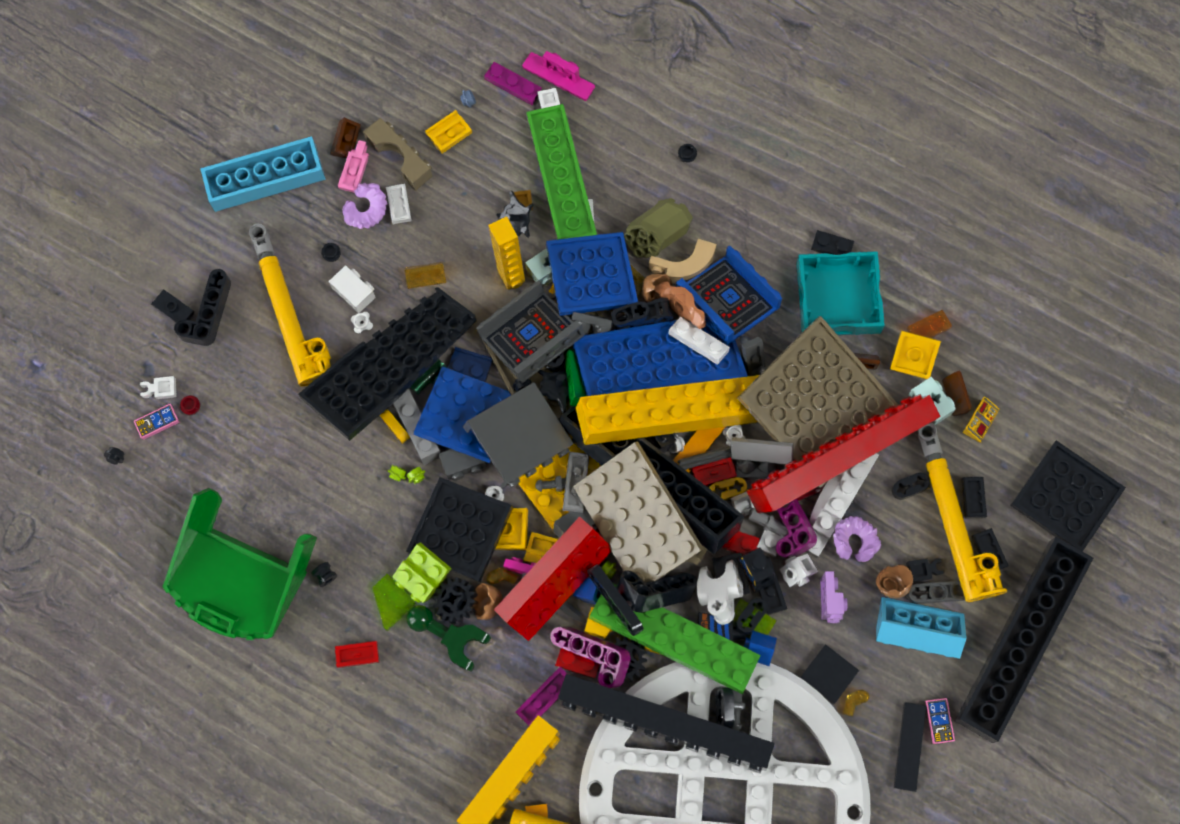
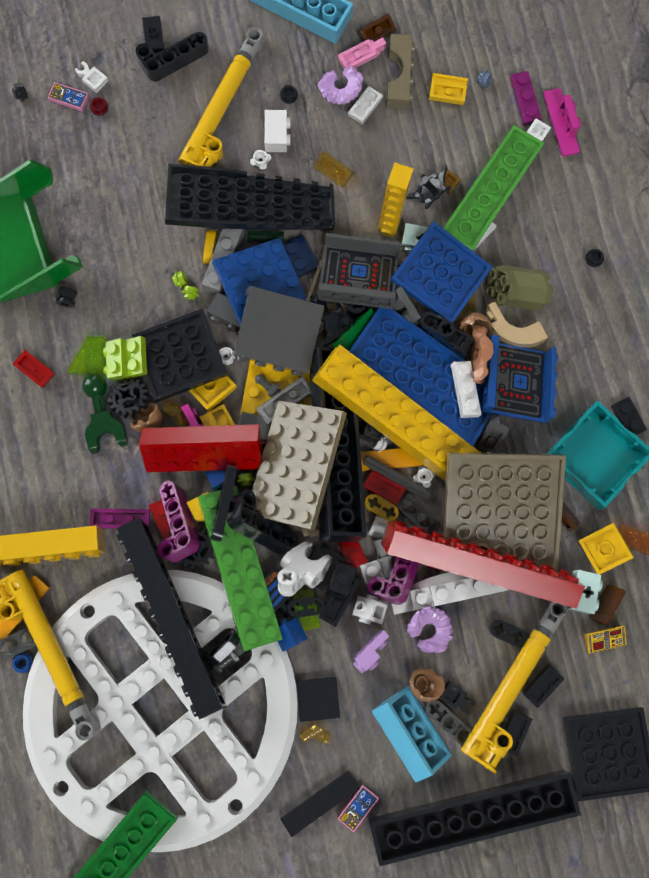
camera: 35 degrees right, 5 degrees up
(761, 450) = (429, 505): light grey tile -> none

